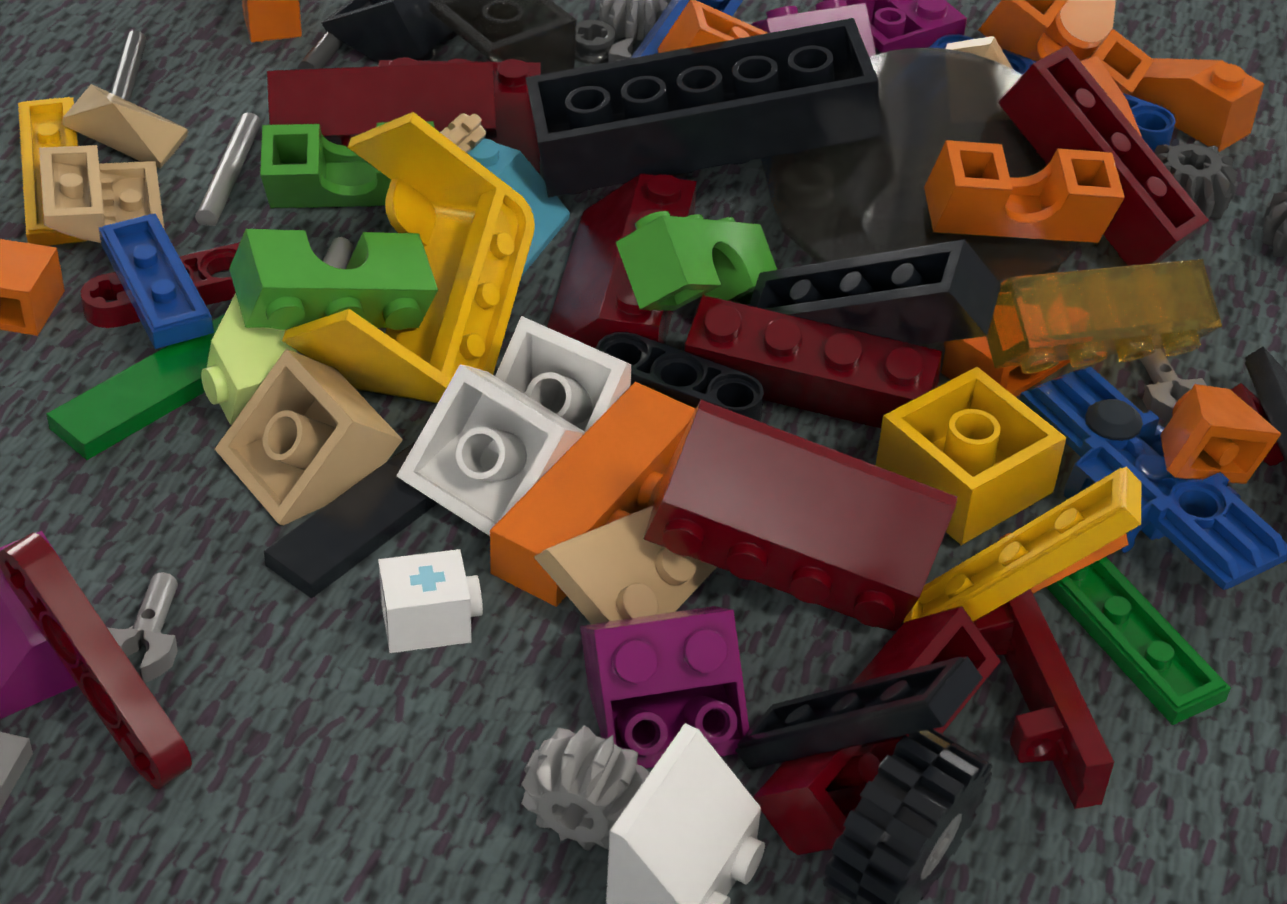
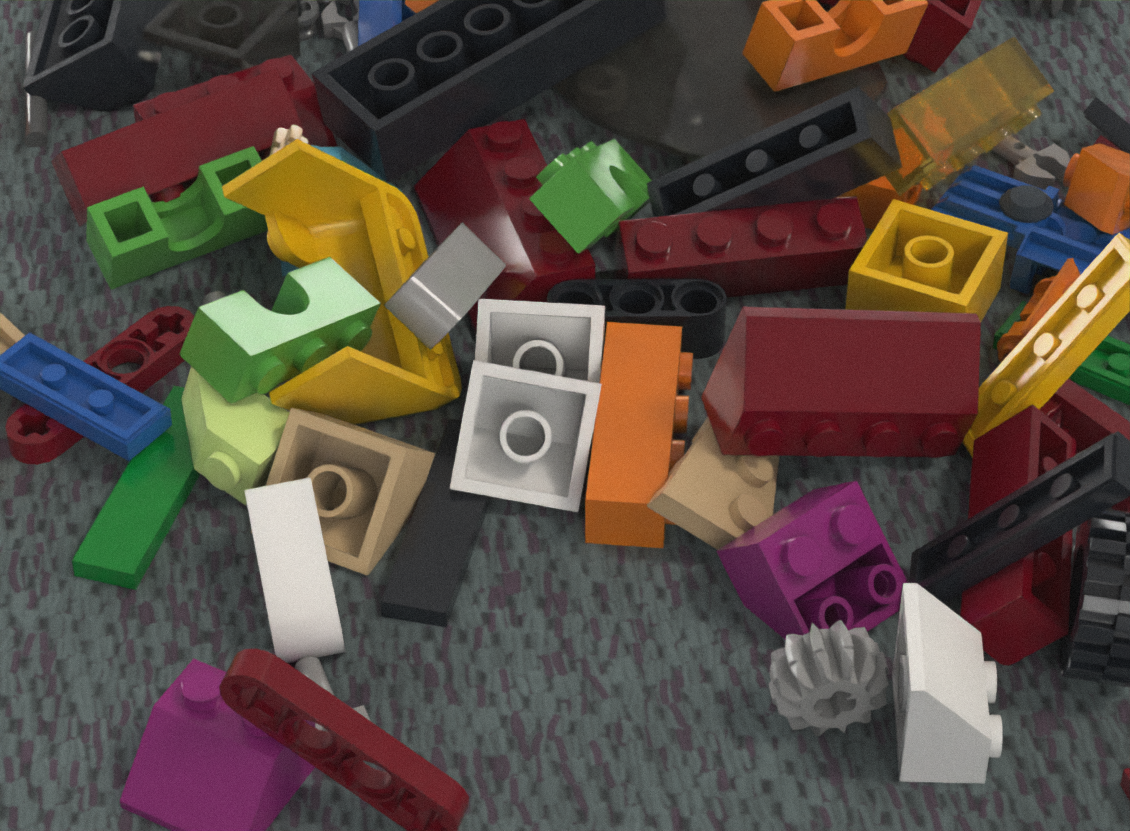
camera: 25 degrees left, 0 degrees up
(202, 493) = (294, 570): none -> white beam
(228, 170) = (41, 266): light grey bar -> none
(428, 600) = (563, 584): white brick -> none
(495, 293) = (445, 286): none -> light grey beam

